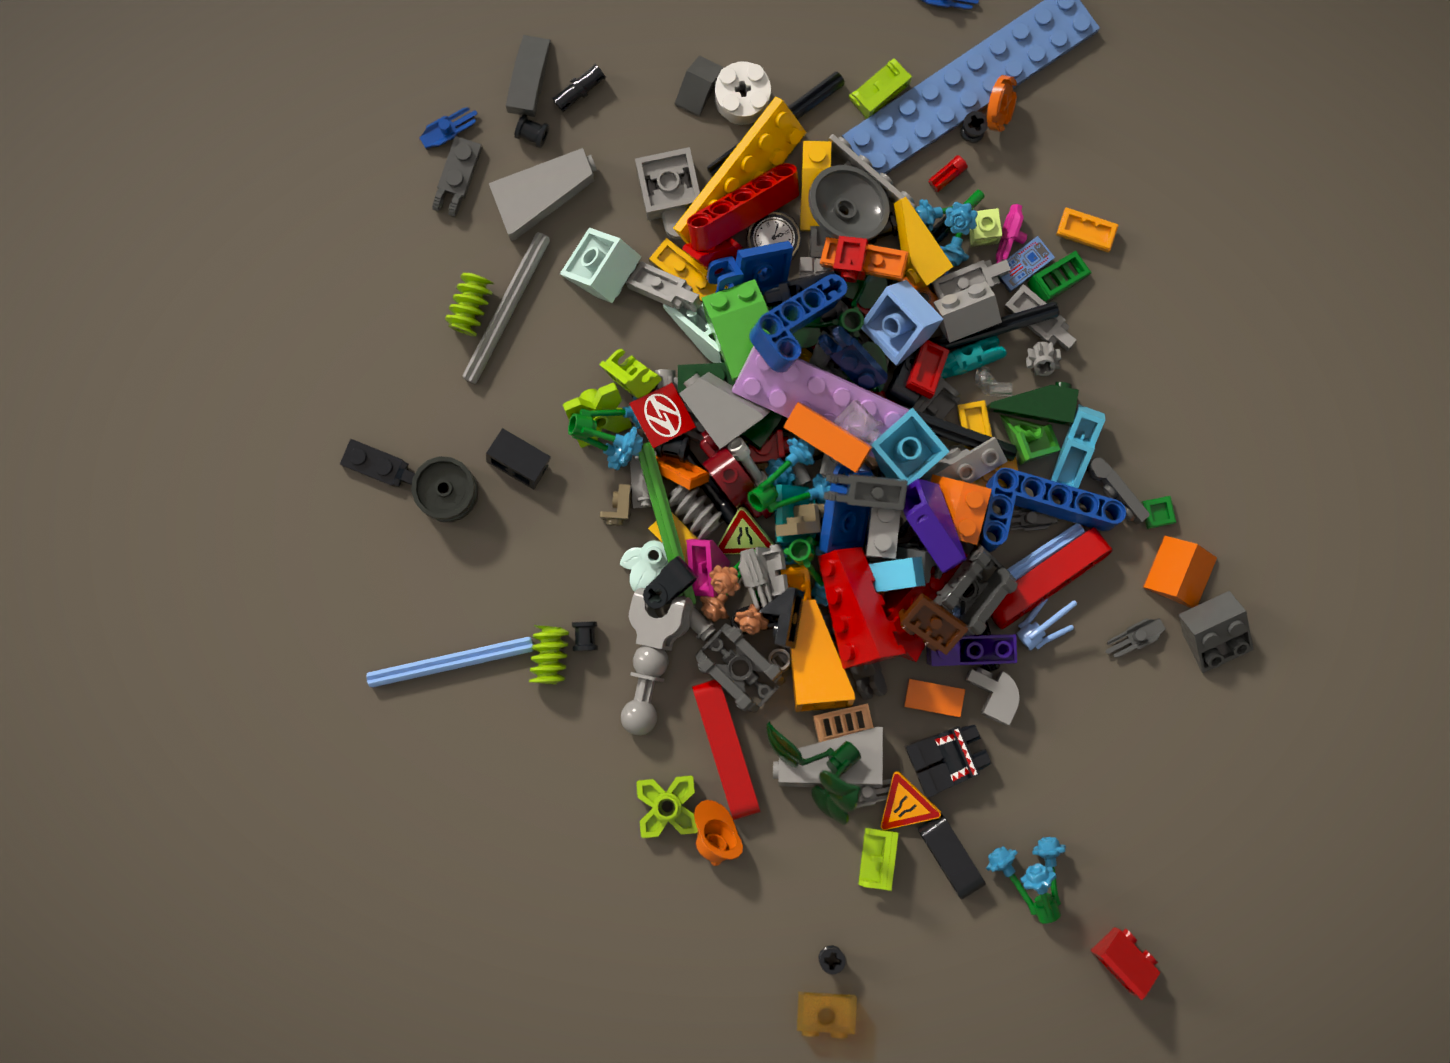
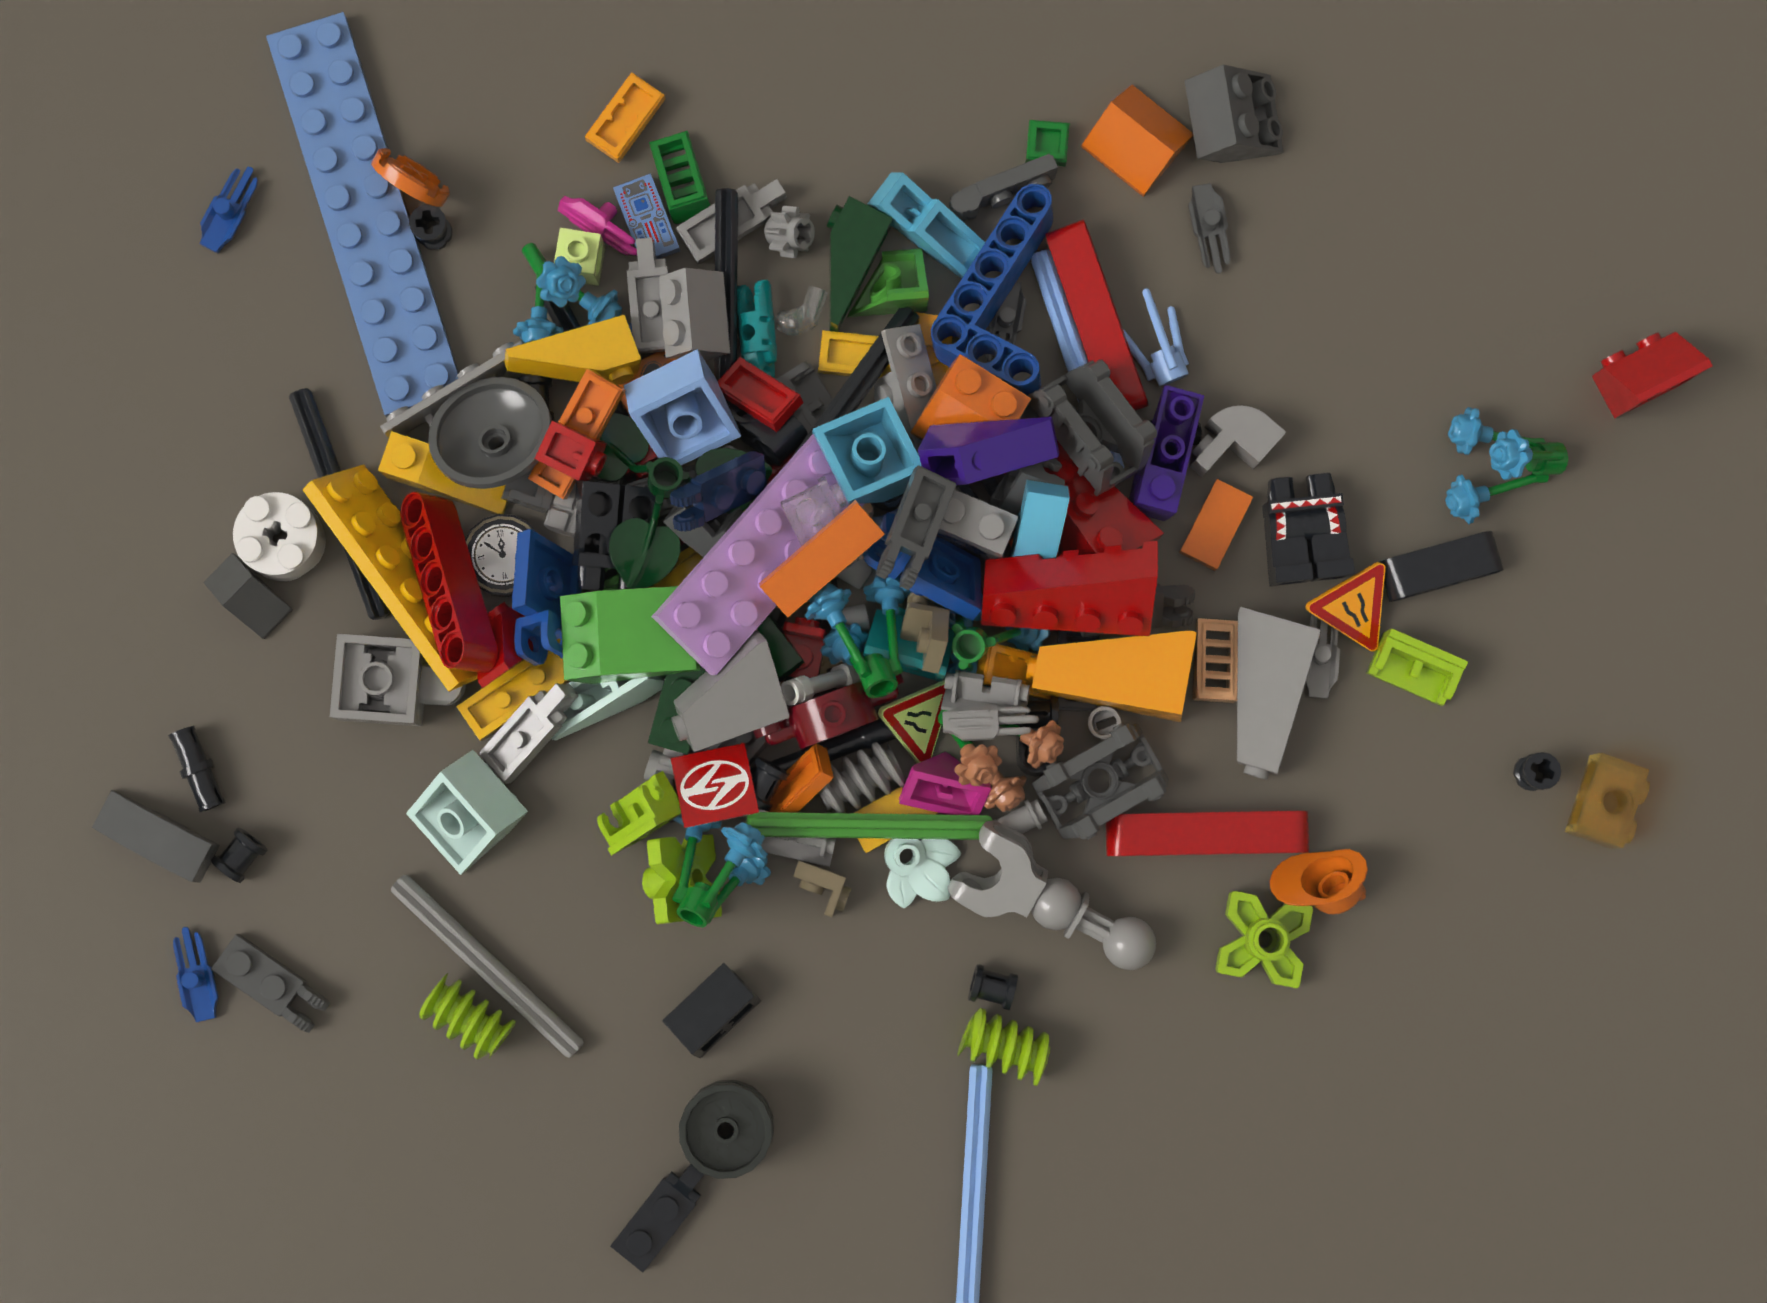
camera: 80 degrees left, 0 degrees up
(540, 190) = (330, 867): light grey slope -> none
(671, 581) = (956, 842): black piece -> none
(788, 609) = (1046, 686): black slope -> none
(801, 314) = (634, 545): blue beam -> none
(838, 795) = (1323, 701): dark green plant -> none
(881, 88) = (333, 340): lime hinge -> none
(933, 624) = (1126, 491): reddish brown bracket -> none
(948, 173) = (481, 274): red piece -> none

